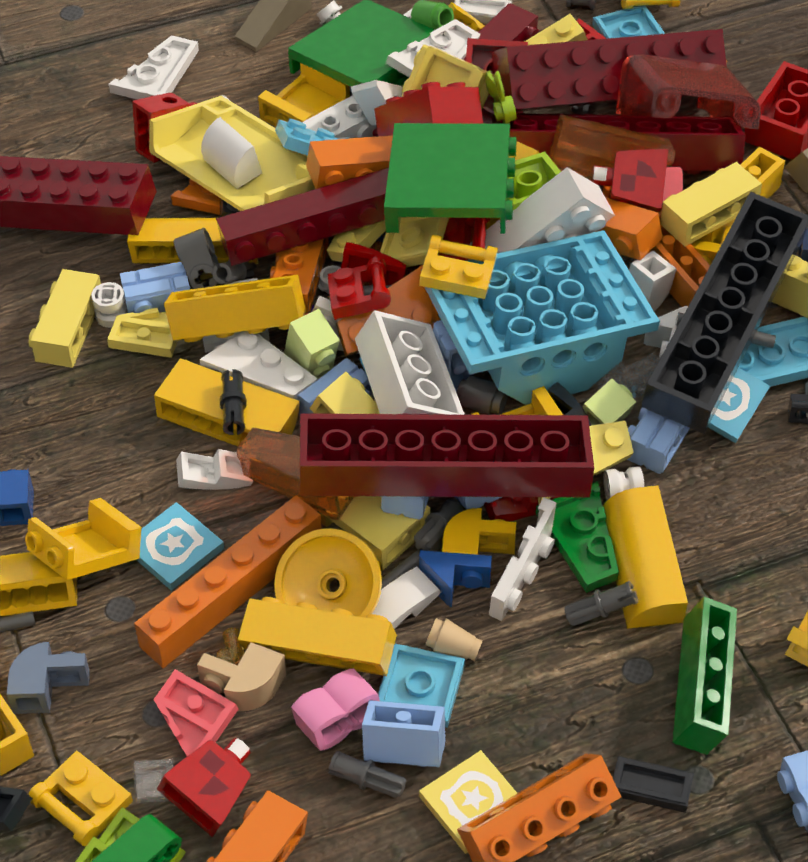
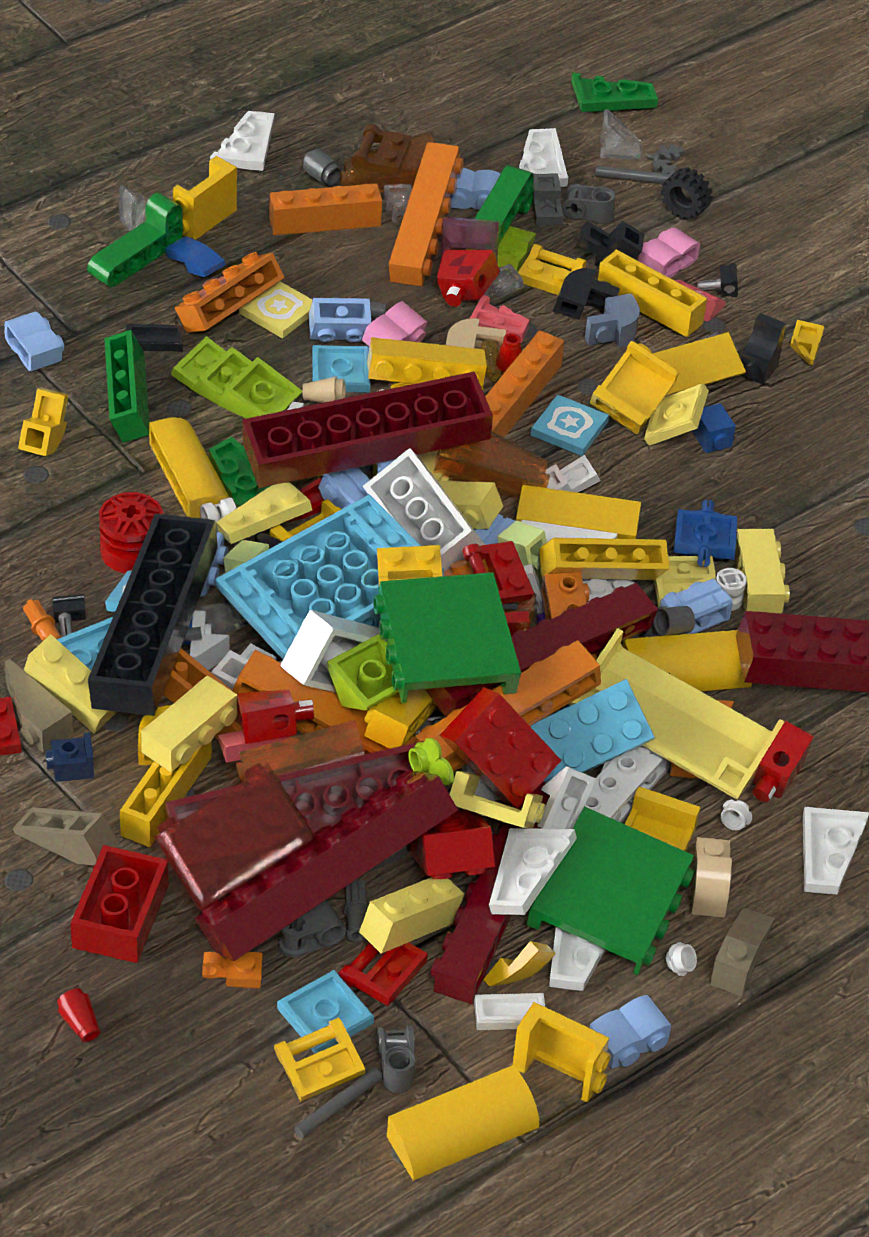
camera: 160 degrees right, 5 degrees down
(49, 499) = (677, 414): none -> light yellow tile
(68, 727) = (580, 289): none -> black brick
(99, 367) = (705, 534): none -> blue plate
(181, 827) = (470, 234): none -> clear pink plate
(203, 639) = (509, 351): none -> red cone
(230, 154) = (685, 710): white brick -> none
(233, 402) = (569, 496): black pin -> none
(272, 52) = (711, 877): none -> tan brick
(432, 13) = (554, 932): bright green brick -> none
(561, 679) = (235, 381): none -> lime slope
(601, 603) = (215, 423): dark grey axle -> none
(730, 463) = (123, 527): none -> red wheel

